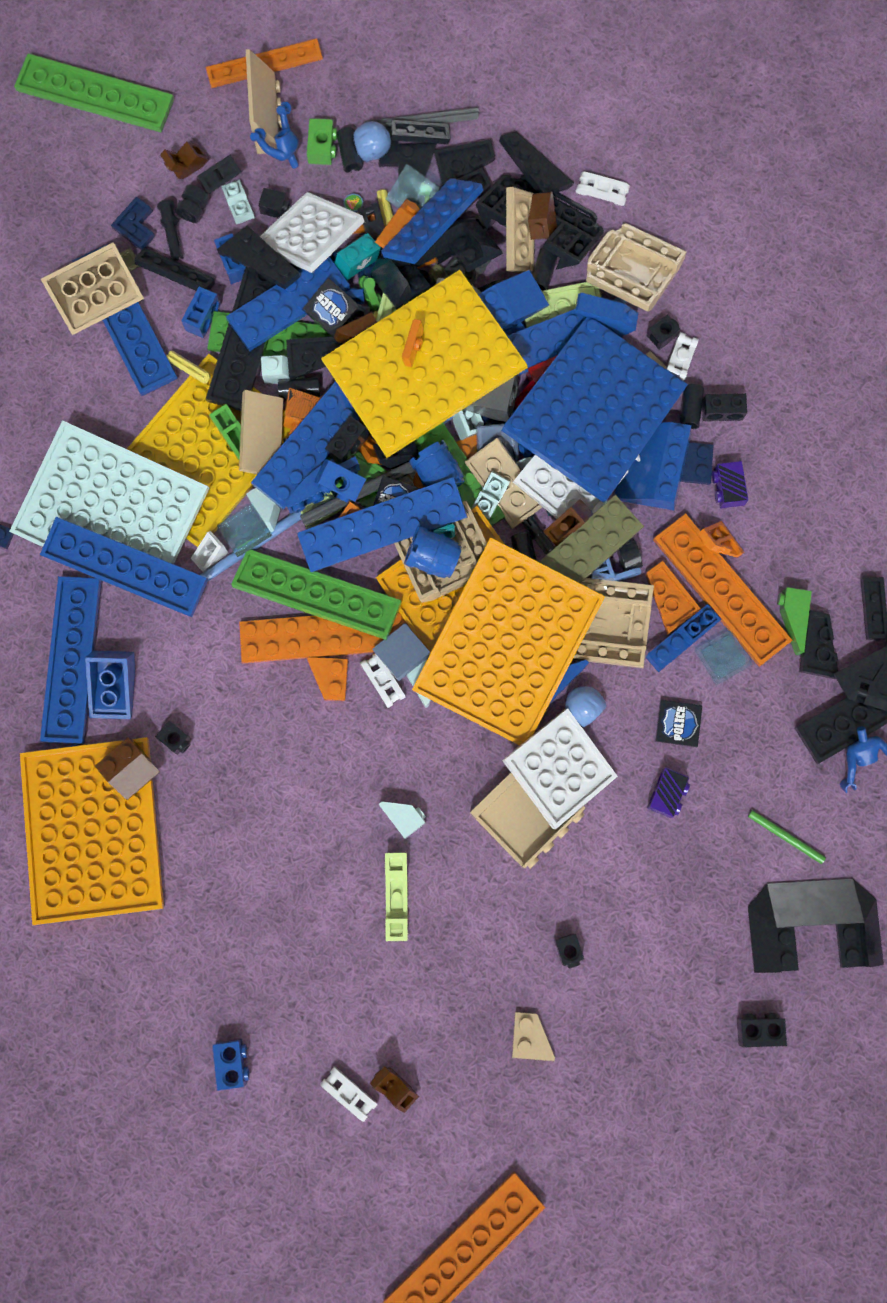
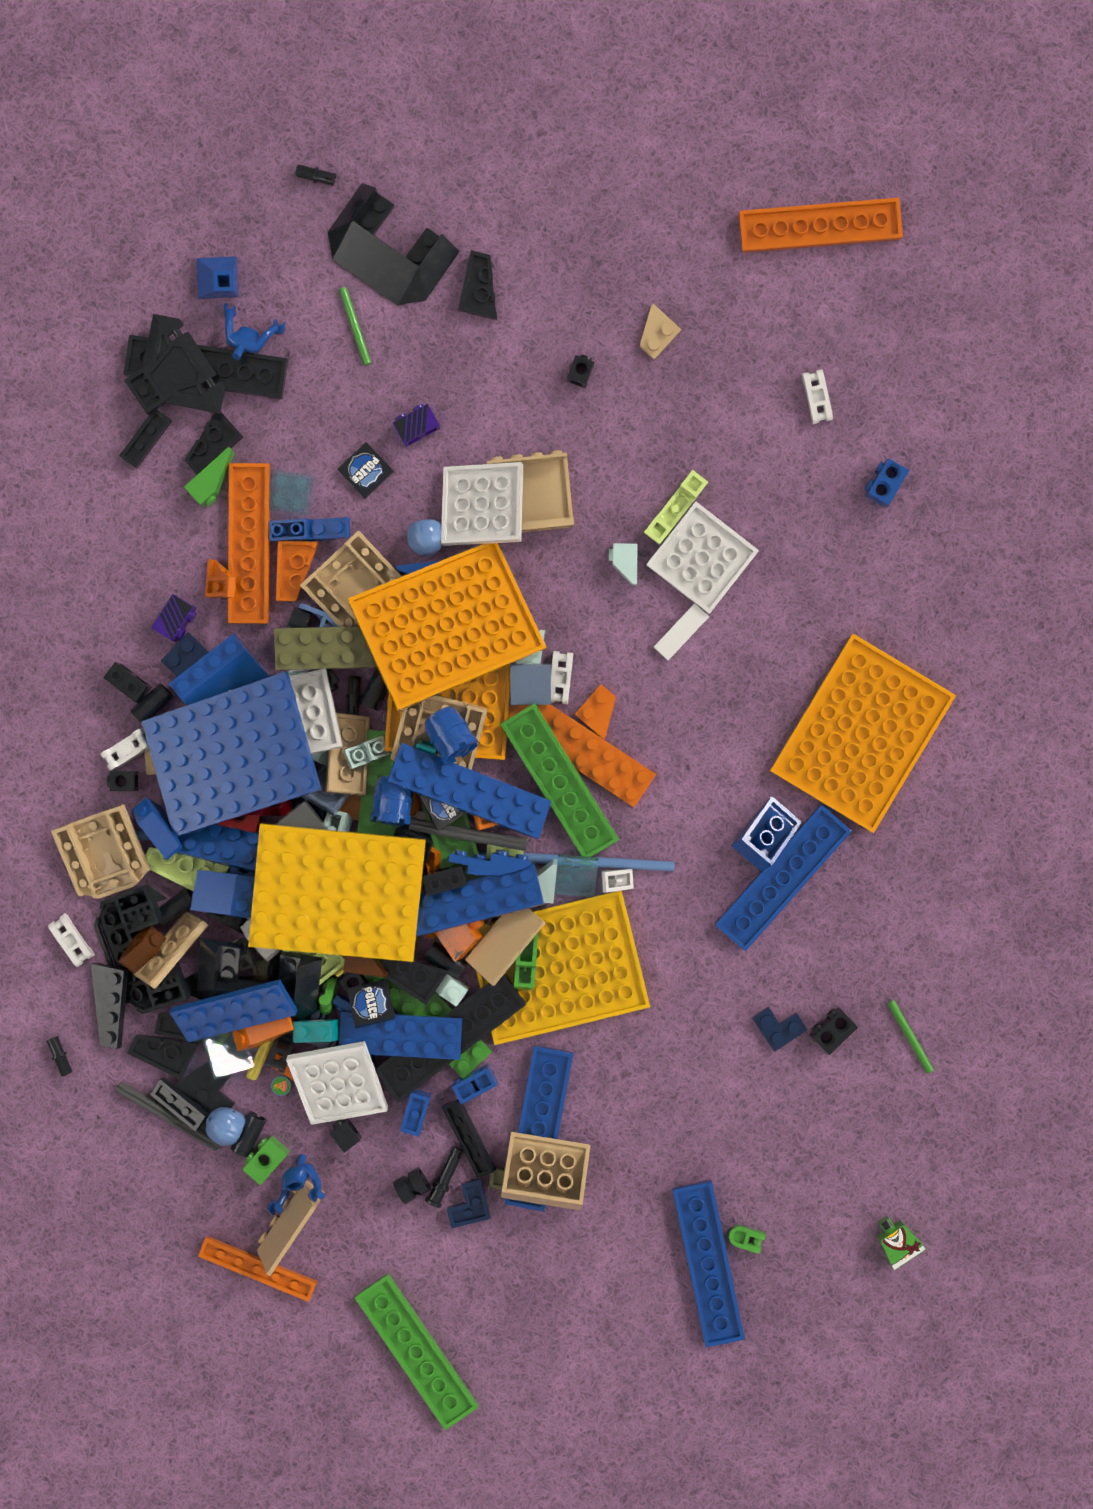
camera: 145 degrees left, 10 degrees up
(110, 494) = (667, 974): light aqua plate -> none
(124, 567) = (690, 916): blue plate -> none
(127, 768) = (802, 755): slope -> none
(167, 732) = (756, 761): black brick -> none
(185, 161) = (388, 1229): reddish brown brick -> none
(188, 367) = (519, 1044): light yellow axle -> none
(218, 174) = (371, 1193): black brick -> none
(237, 202) = (372, 1160): light aqua slope -> none
(259, 257) = (395, 1091): black wing -> none
(311, 796) = (681, 631): none -> white tile
(340, 872) = (702, 557): none -> white plate
(352, 482) = (477, 860): blue brick -> none
(394, 1089) = (782, 373): reddish brown brick -> none
(413, 343) = (334, 910): orange plate -> none
(540, 101) = (59, 1056): none -> black axle
(568, 522) = (326, 679): reddish brown slope -> none
(712, 952) = (477, 290): none -> black wing
(761, 1036) = (492, 203): black brick -> none

